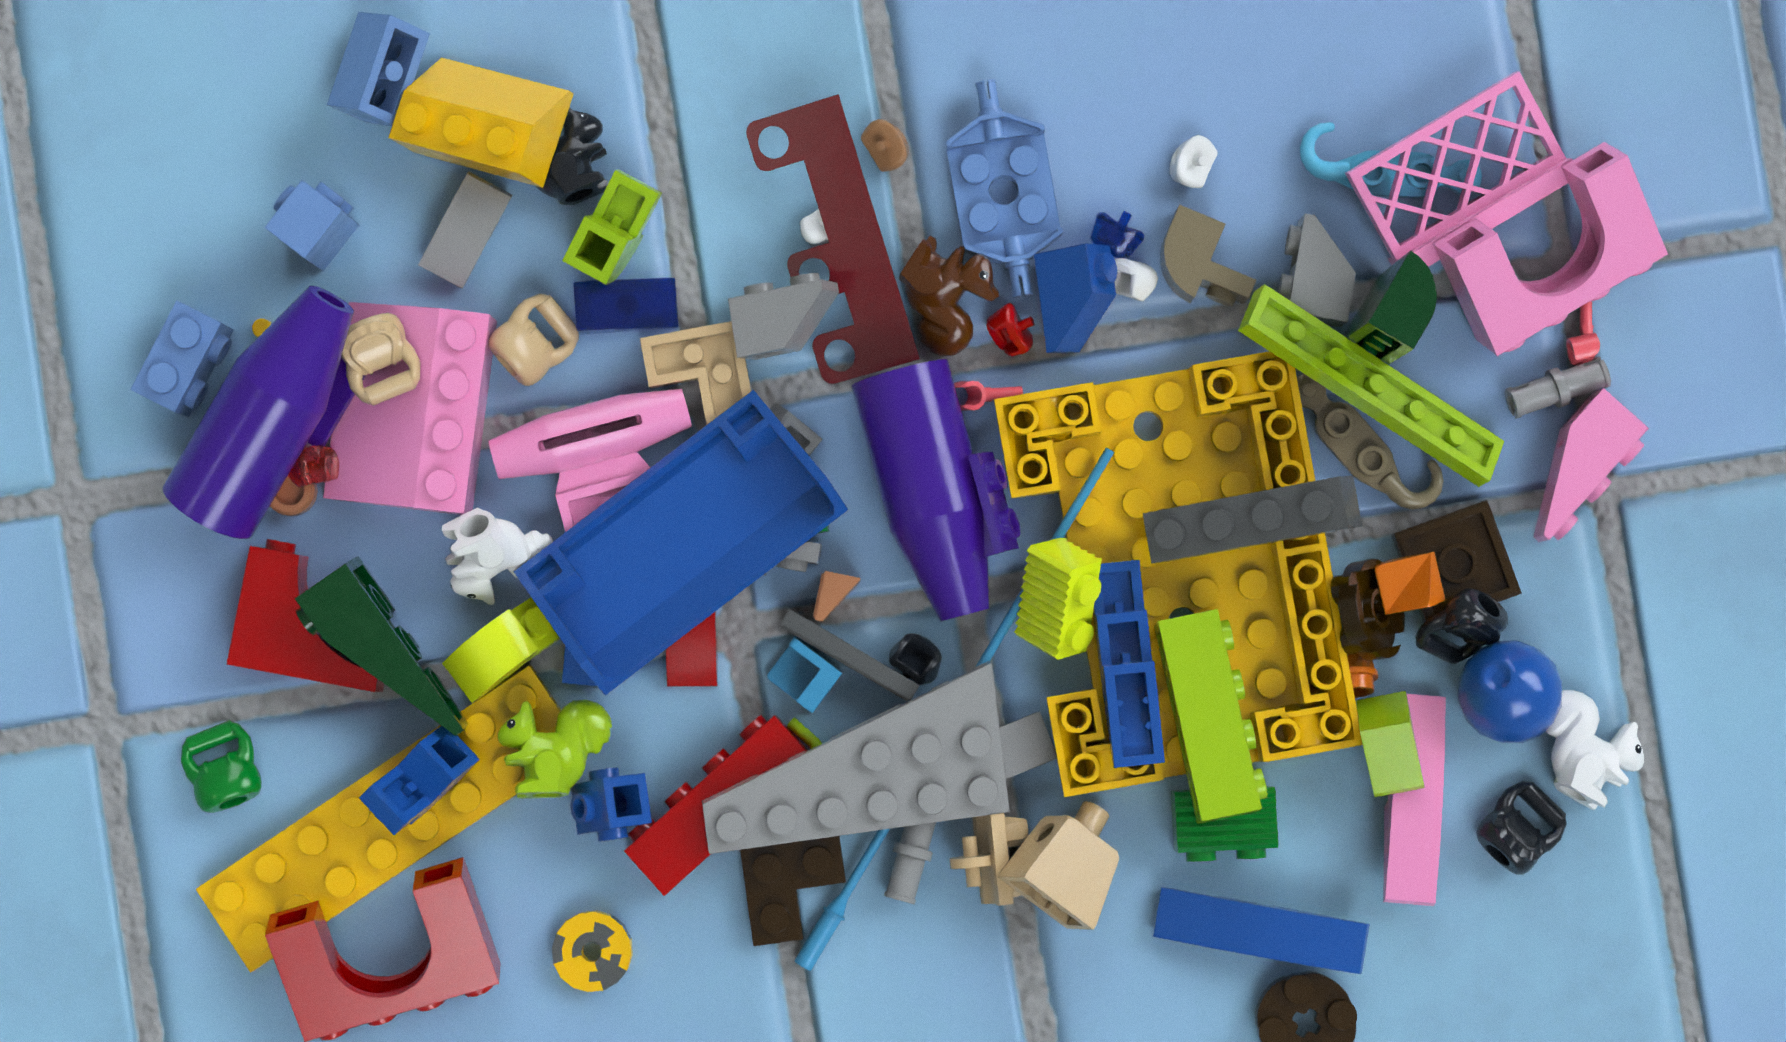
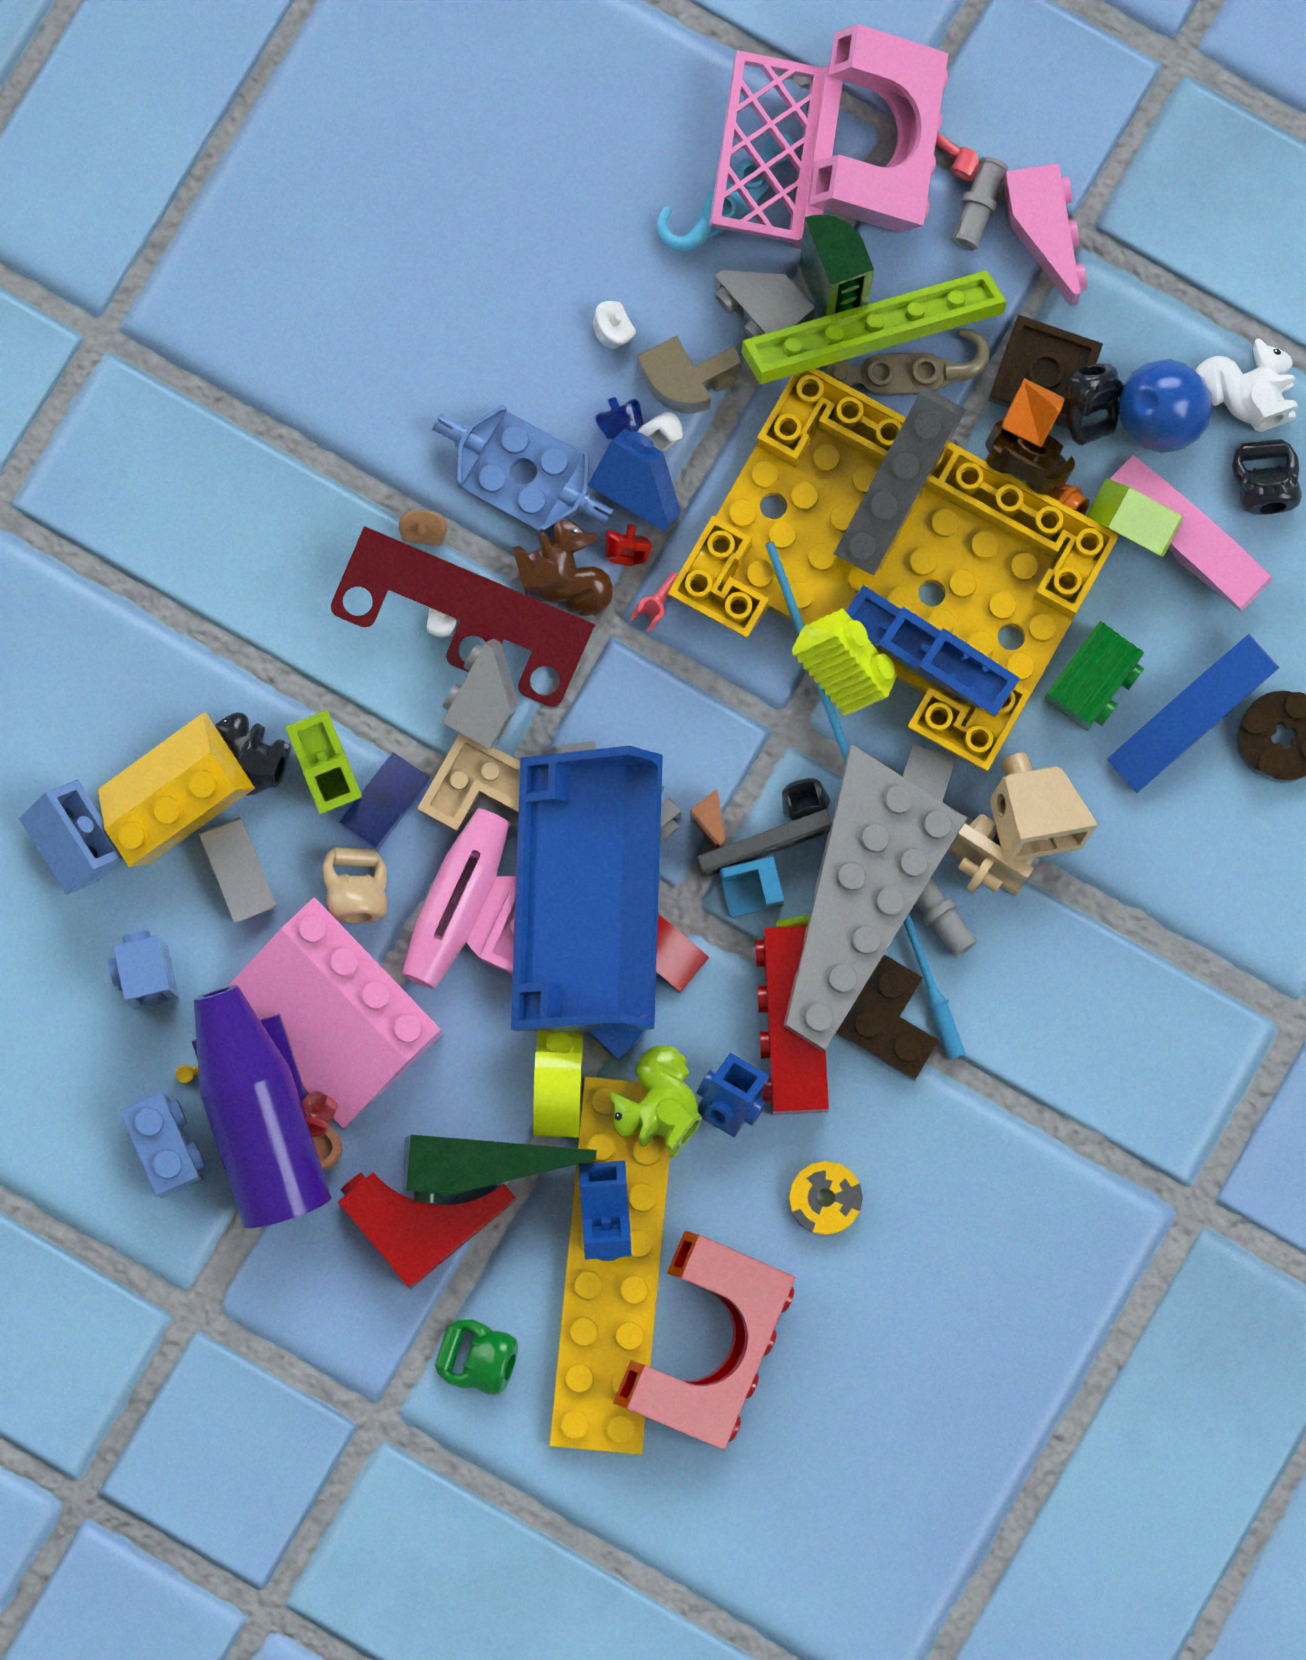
camera: 50 degrees left, 5 degrees down
(375, 345) = (270, 994): tan piece -> none
(485, 549) = (479, 1036): white animal -> none
(935, 492) = (696, 686): dark purple piece -> none
(1209, 716) = (1012, 623): lime brick -> none

